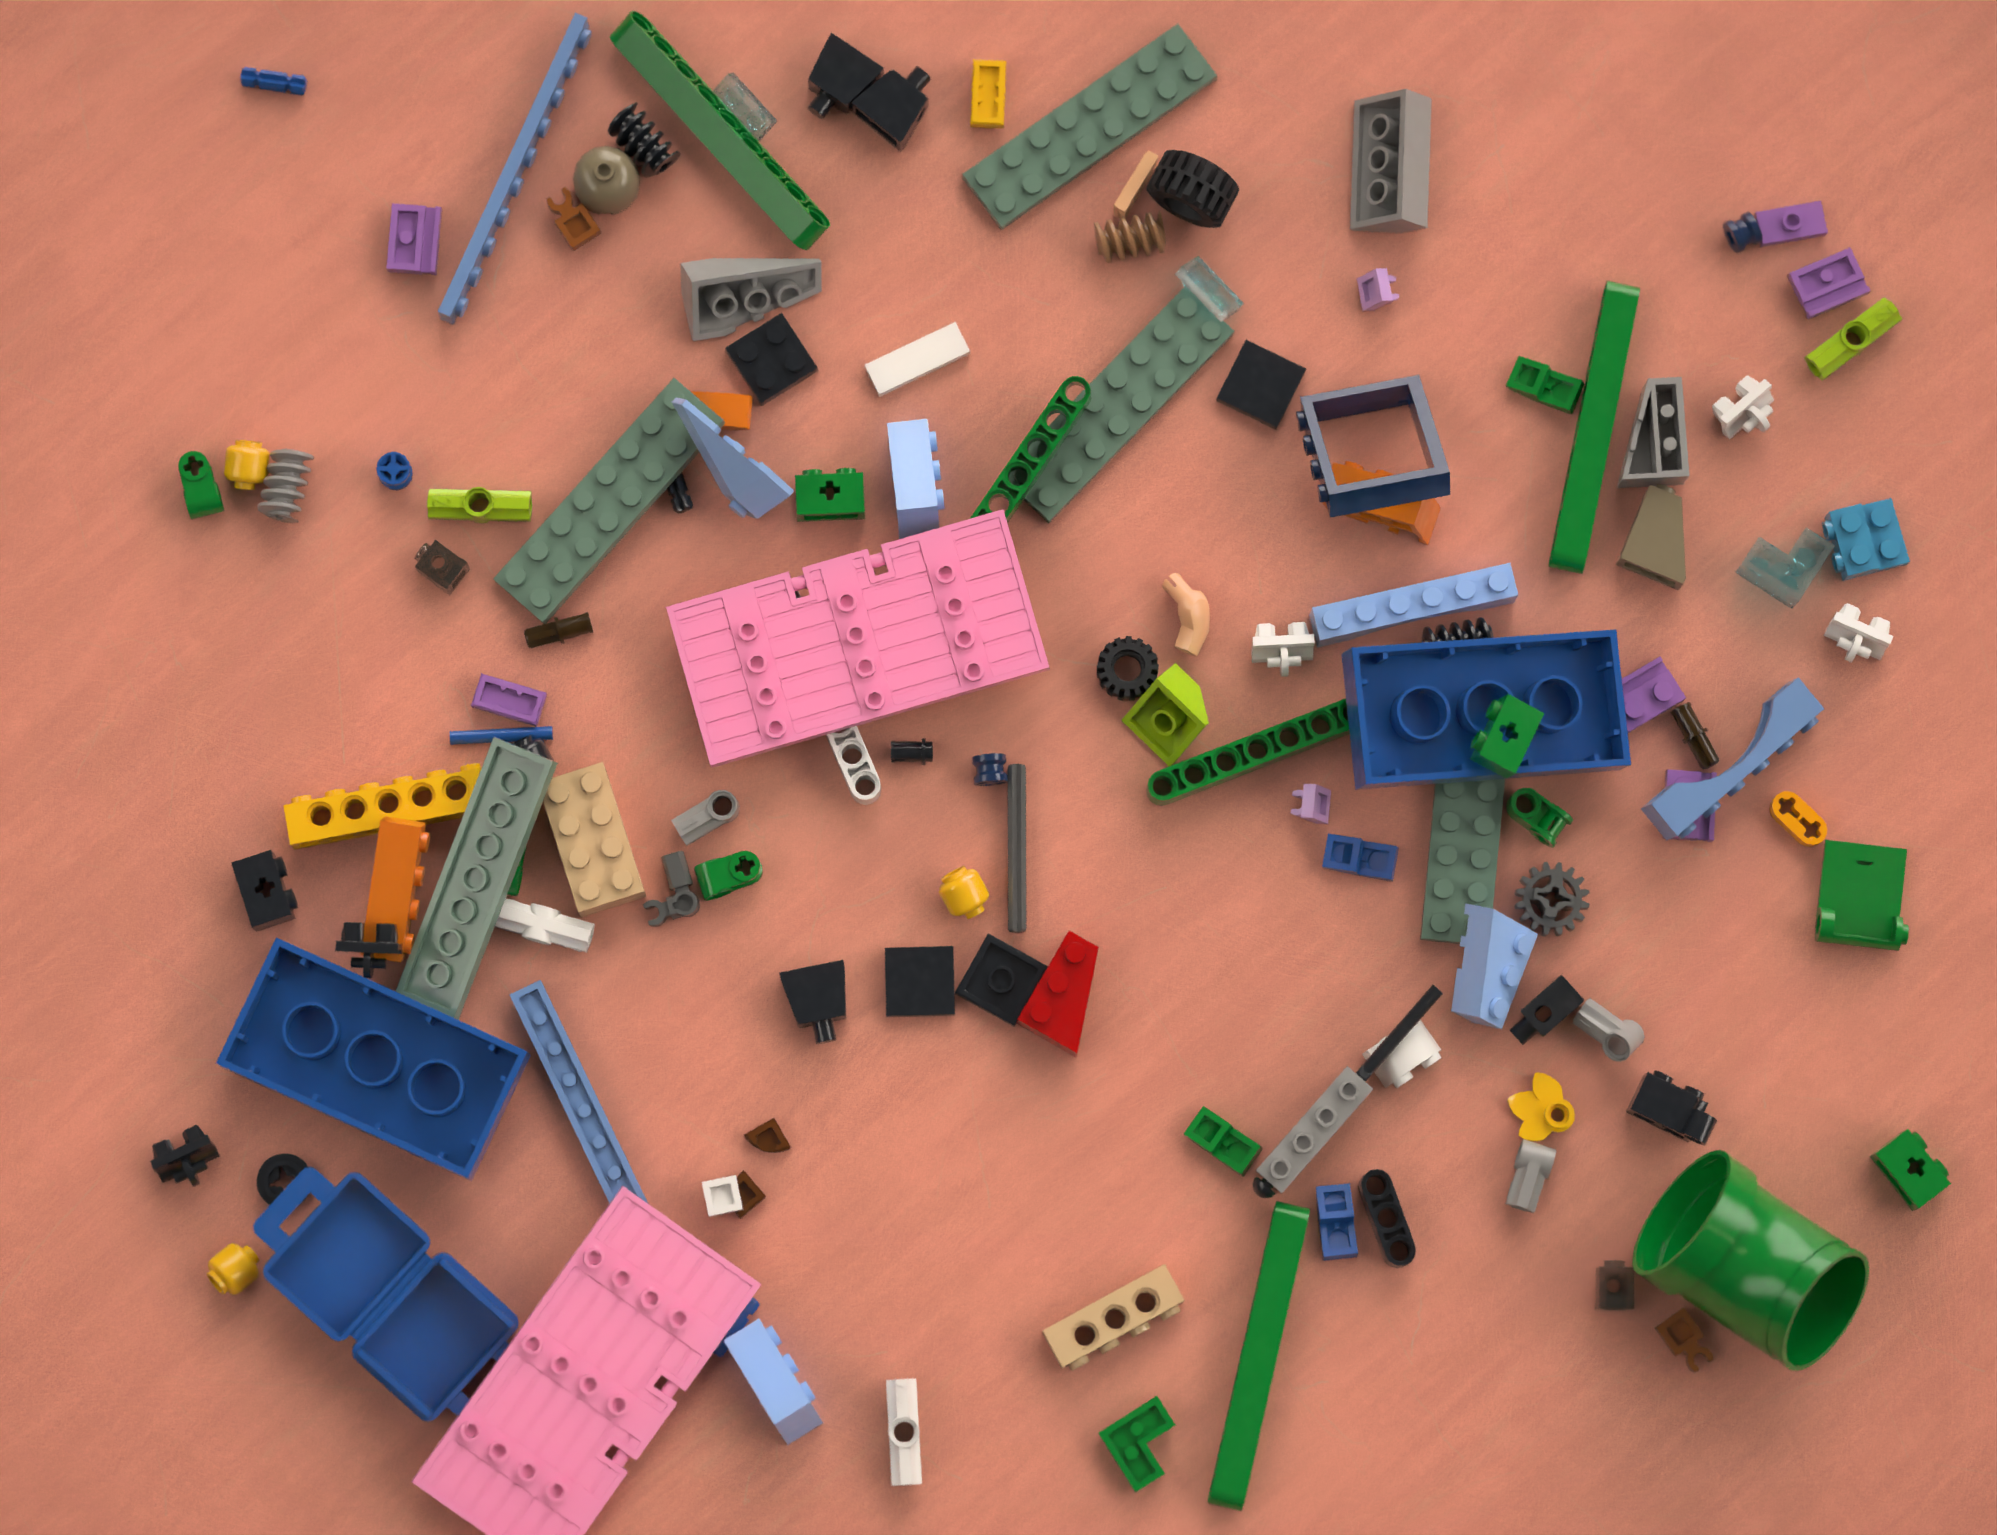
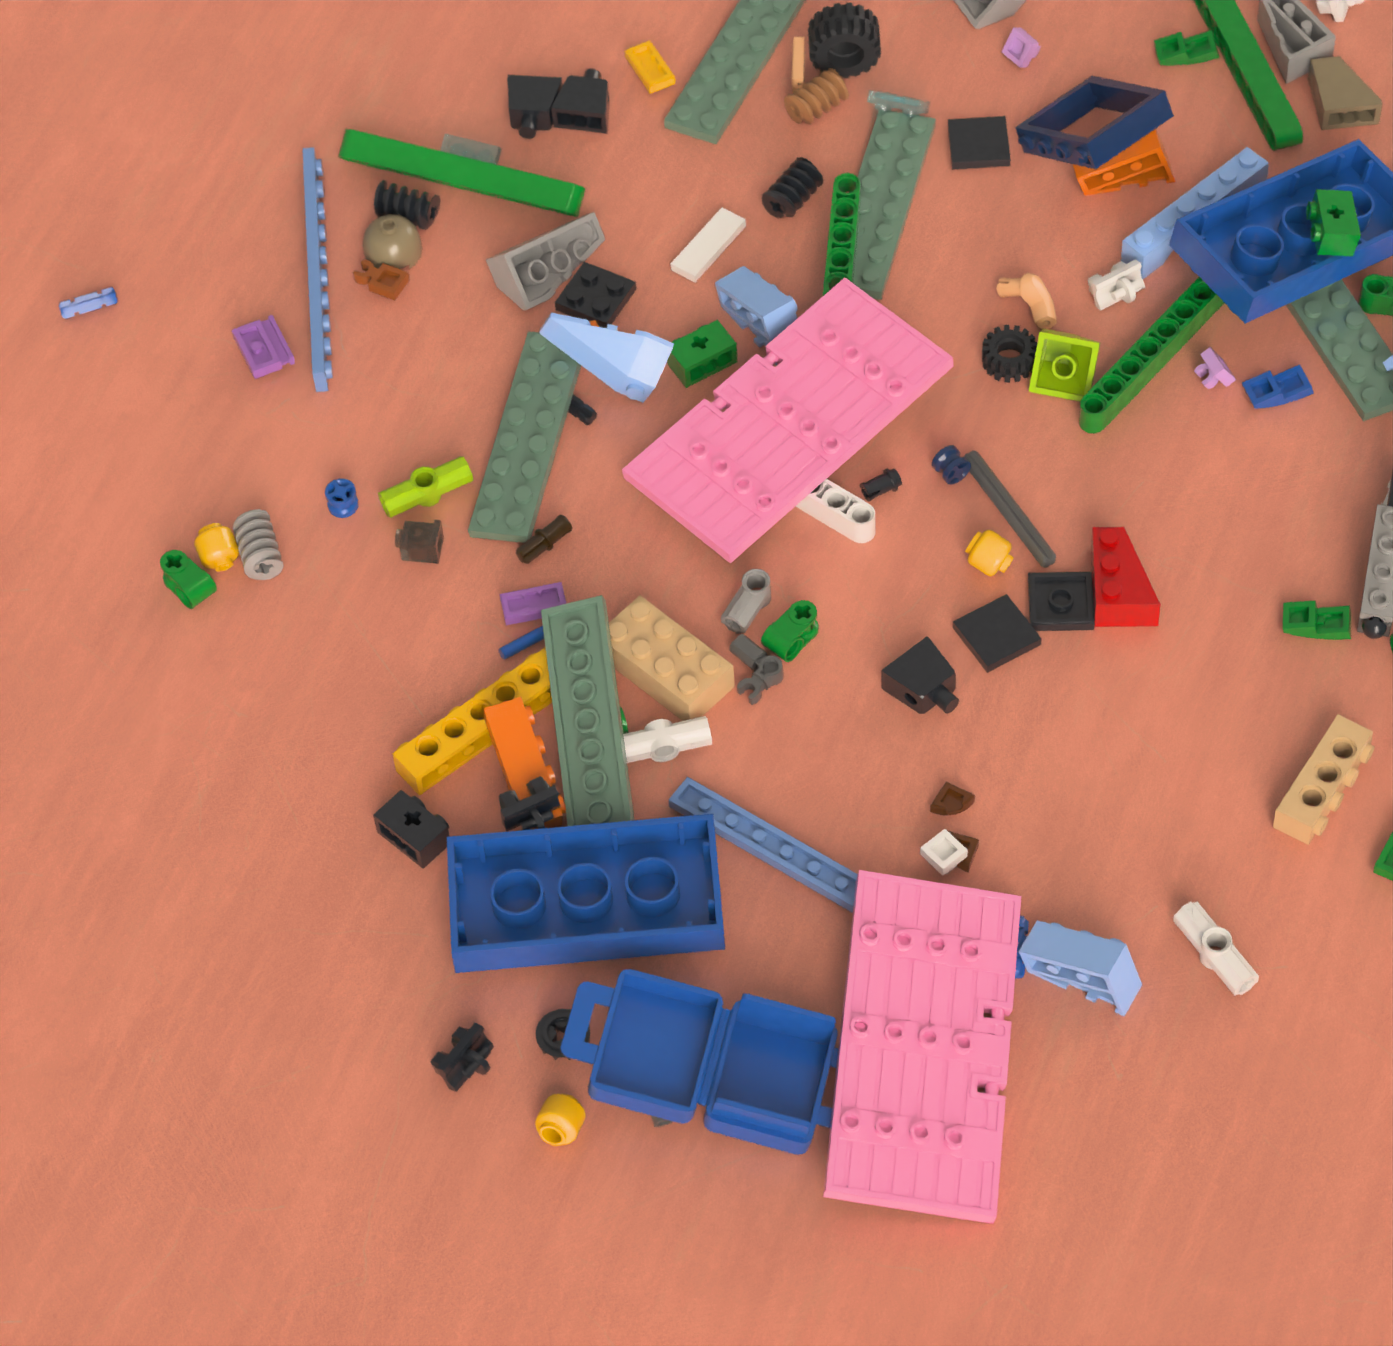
camera: 20 degrees left, 25 degrees down
(1037, 342) = (792, 188): none -> black piece

